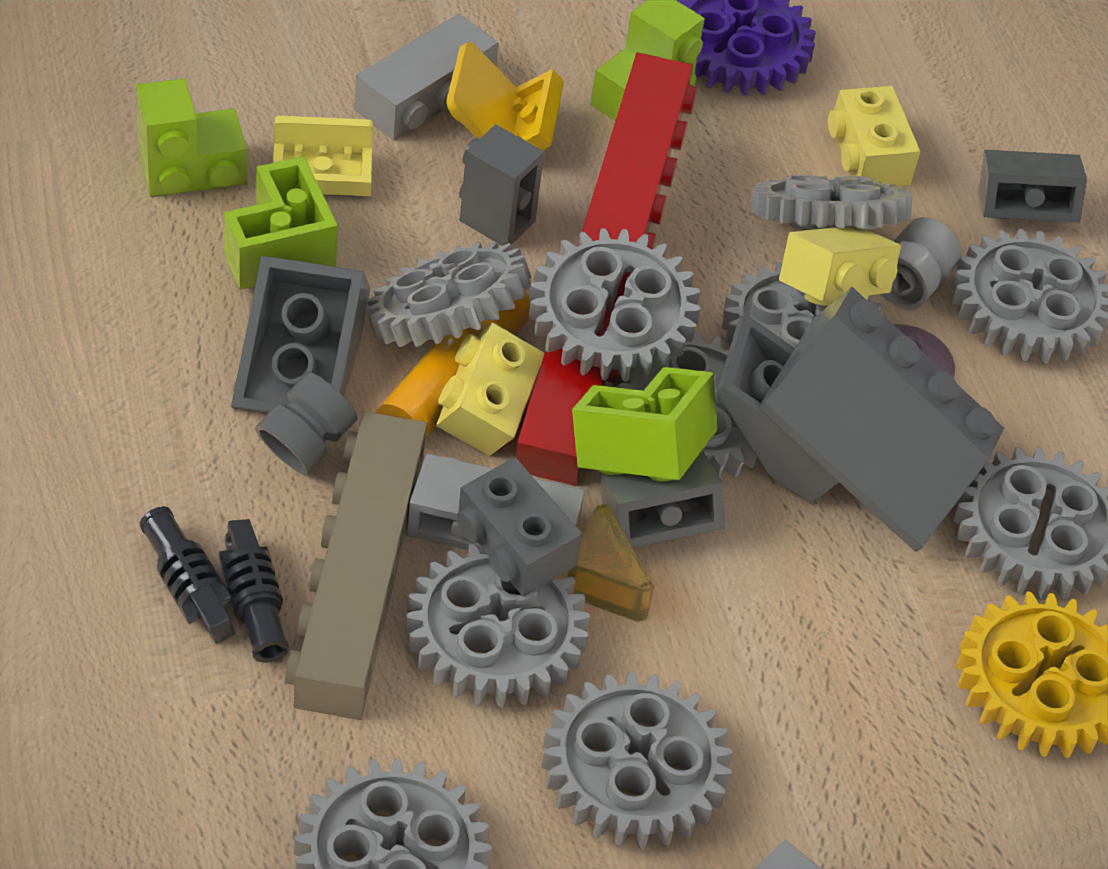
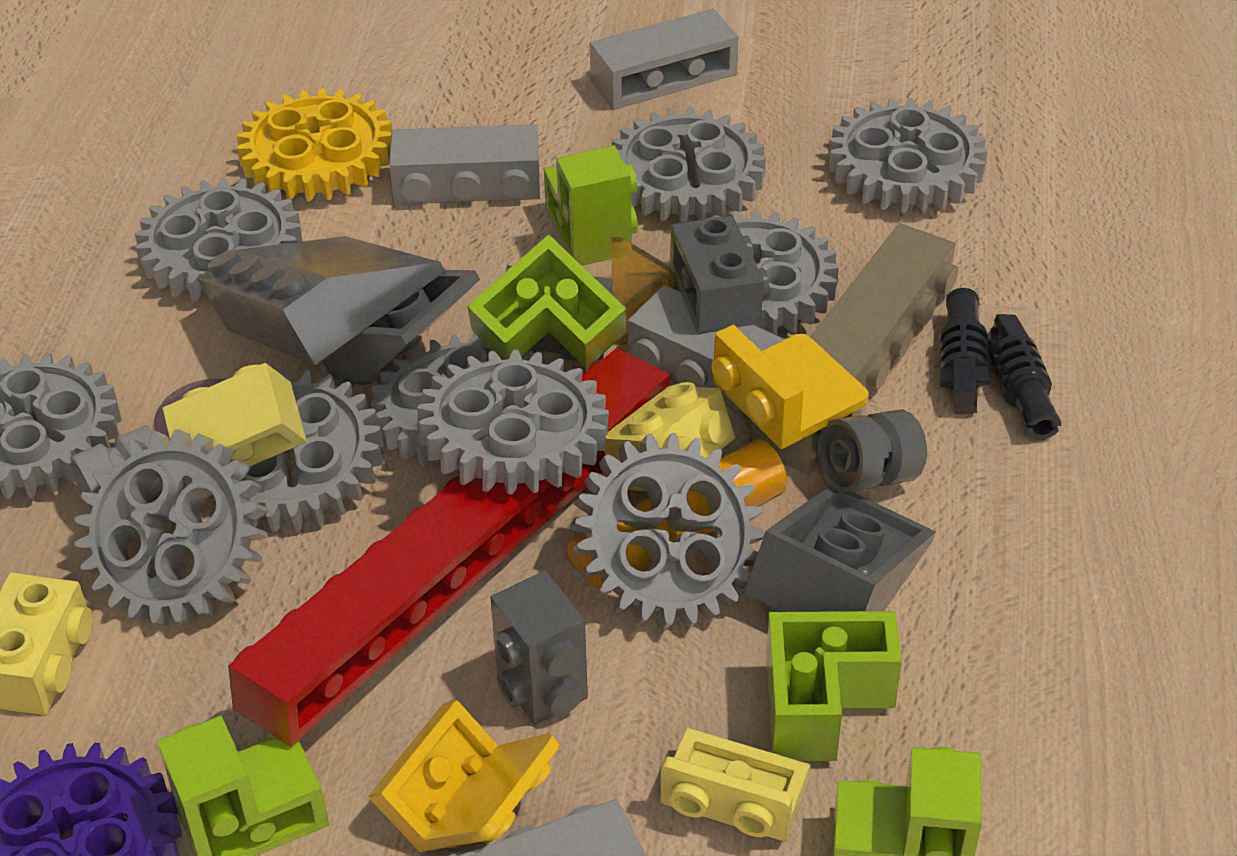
camera: 150 degrees left, 5 degrees down
(403, 416) = (786, 387): none -> yellow bracket
(699, 644) = (591, 202): none -> lime brick
(871, 686) = (465, 164): none -> light grey brick

